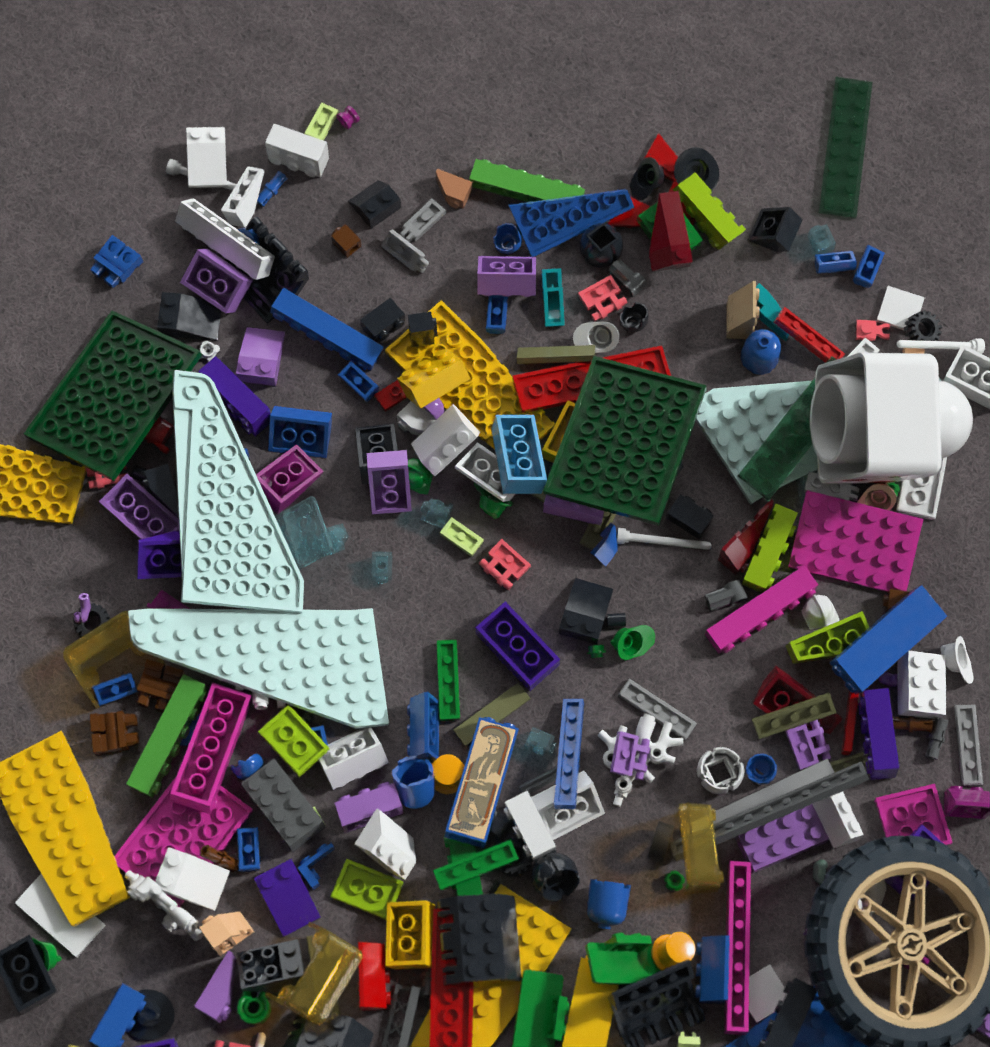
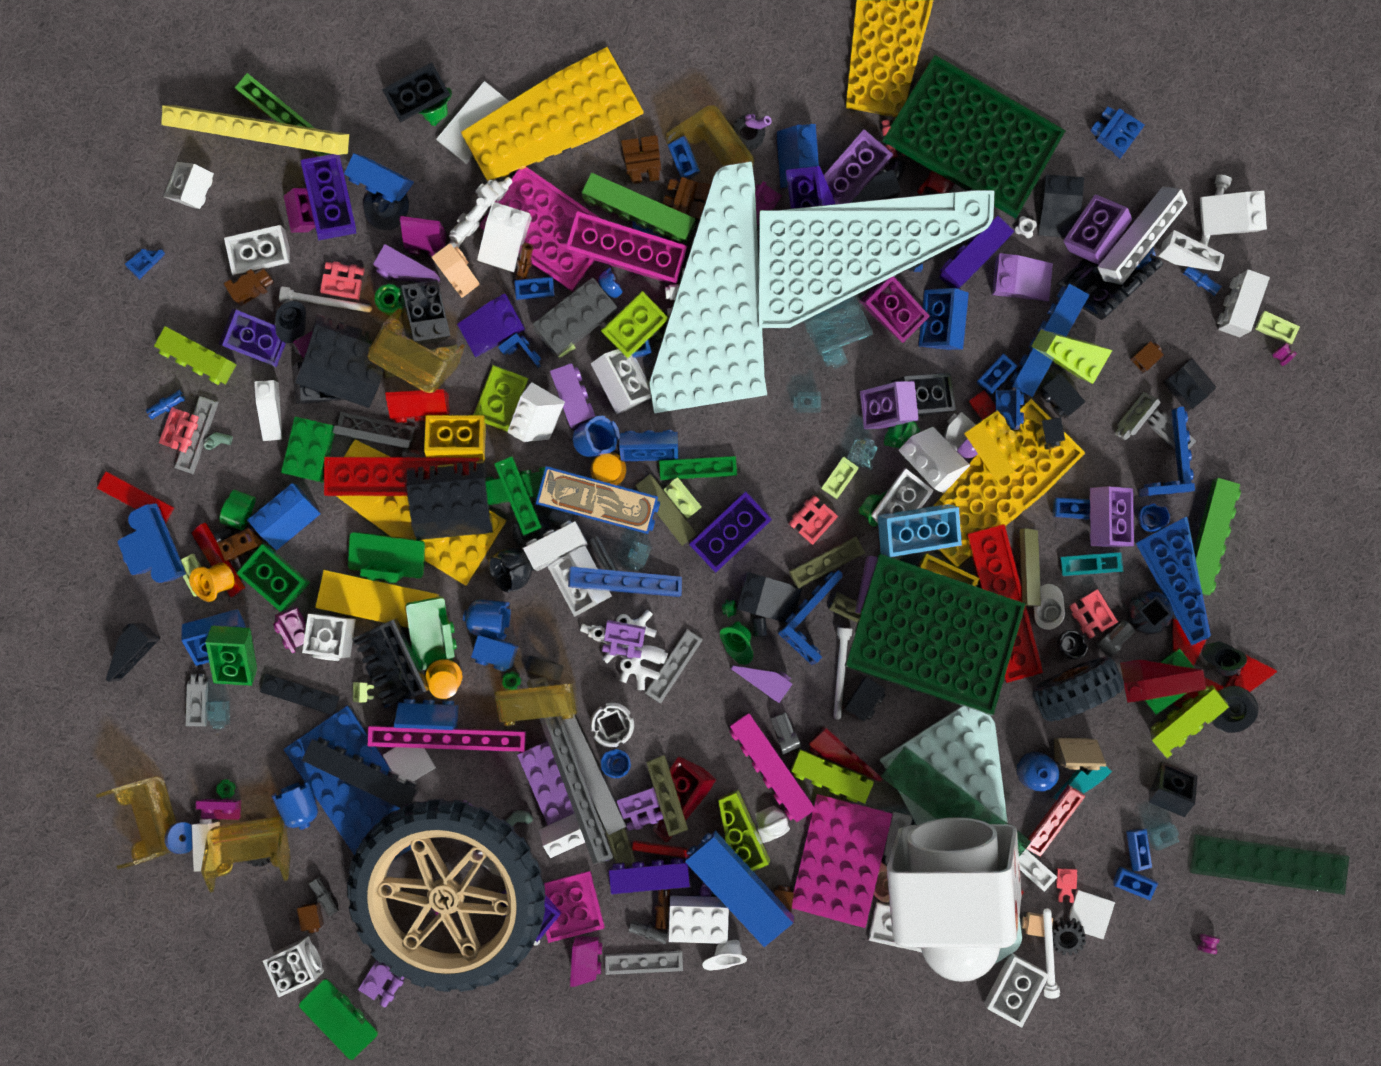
camera: 90 degrees right, 15 degrees up
(116, 572) = (796, 149): none -> blue slope
(187, 967) = (422, 236): none -> magenta slope
(343, 305) = (1074, 355): none -> lime wedge
(391, 367) = (1008, 405): none -> blue bracket
(451, 209) = (1183, 459): none -> blue bracket
(454, 189) = (1208, 463): nougat slope -> none
(480, 696) = (682, 498): none -> yellowish green plate
(549, 552) = (826, 562): none -> olive tile
(607, 546) = (832, 619): blue slope -> none
(631, 579) = (797, 640): none -> blue bracket
(643, 895) = (495, 652): none -> blue brick
(676, 605) = (768, 681): none -> medium lavender slope
(679, 307) = (1078, 689): none -> black wheel
(924, 202) = (1208, 943): none -> magenta wheel

